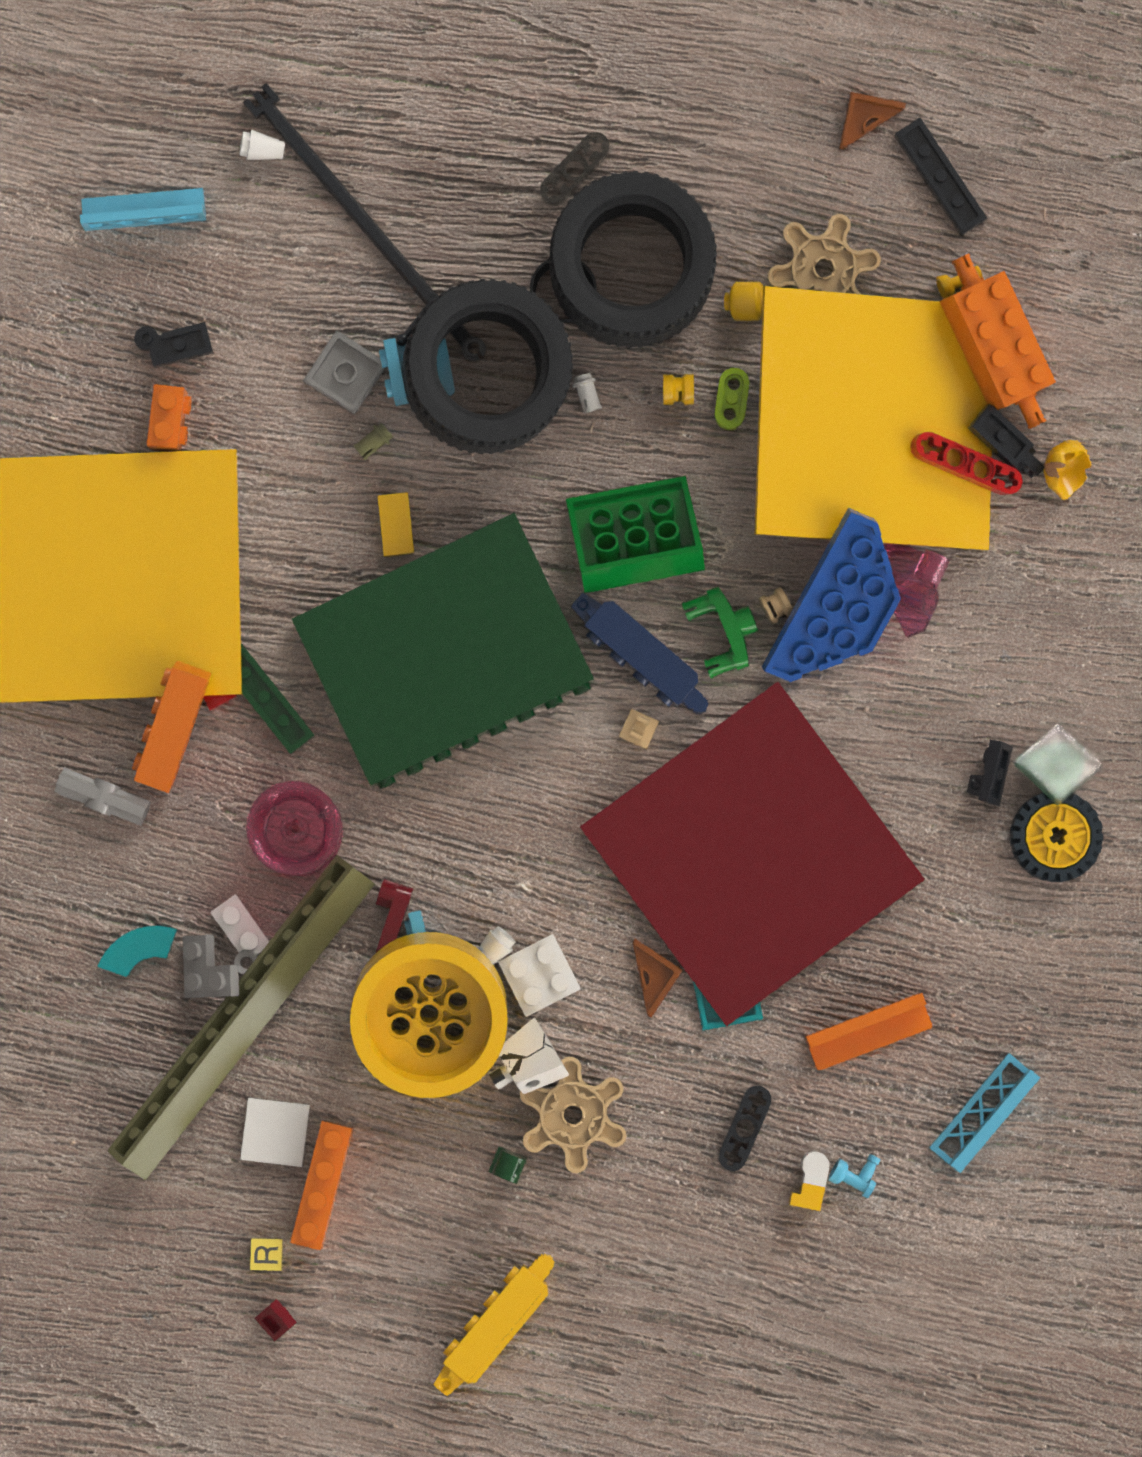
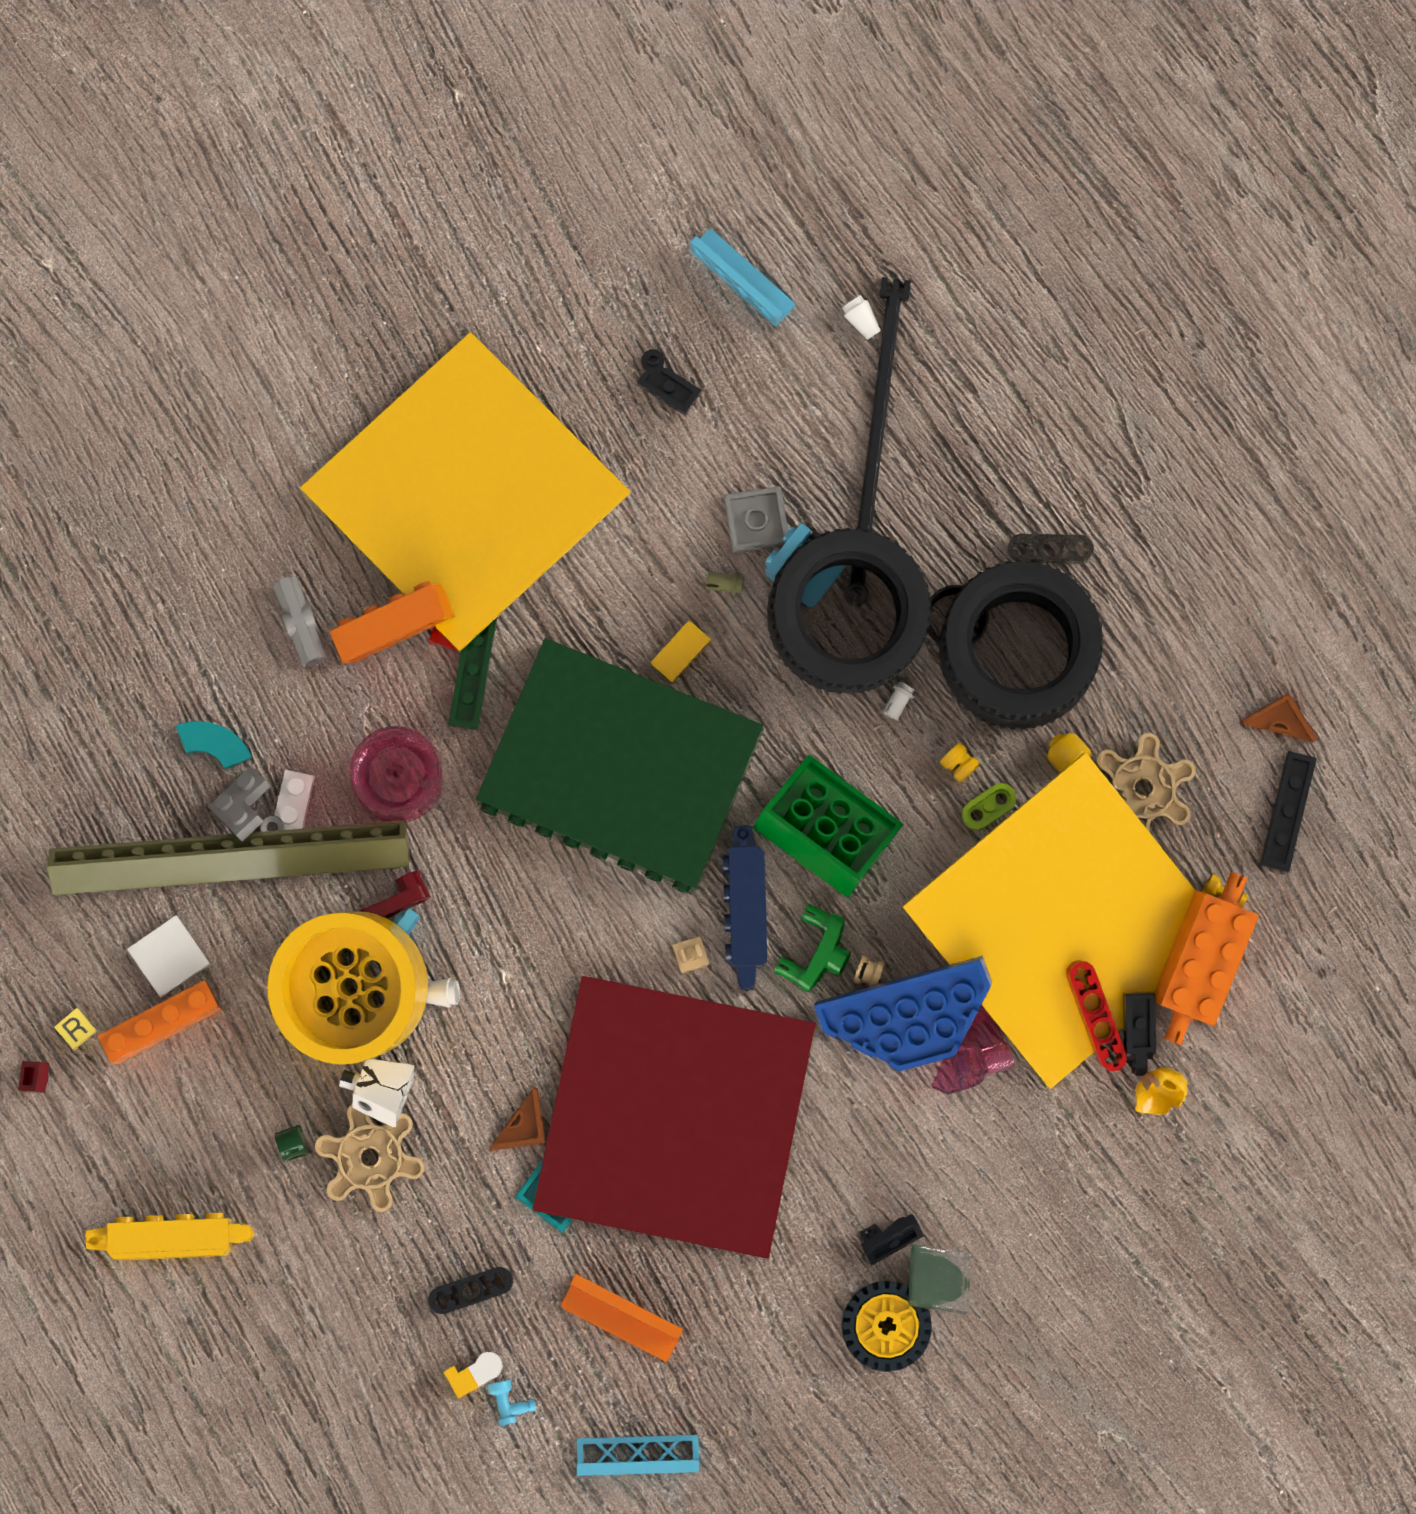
camera: 50 degrees right, 5 degrees down
(167, 418) = (609, 425): orange brick -> none
(539, 975) = (449, 1043): white plate -> none

